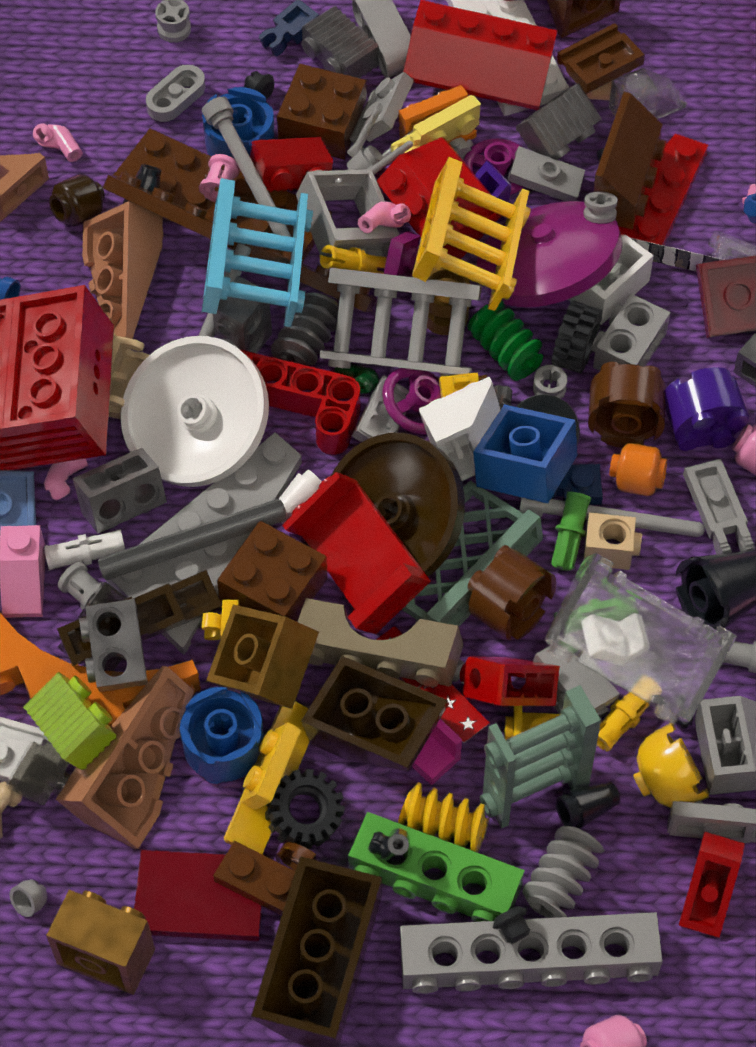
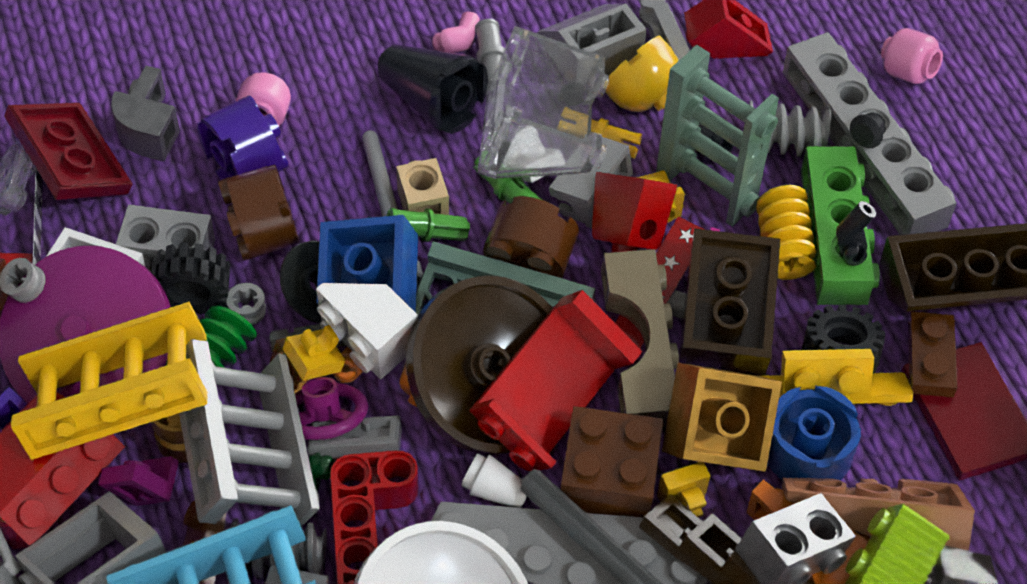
camera: 115 degrees left, 5 degrees down
(290, 854) = (892, 325): reddish brown tile -> none
(351, 259) = (166, 525): yellow pin -> none
(385, 215) = (91, 504): bright pink arm -> none
(639, 469) = (329, 188): orange head -> none
(718, 505) = (342, 122): light grey hinge -> none

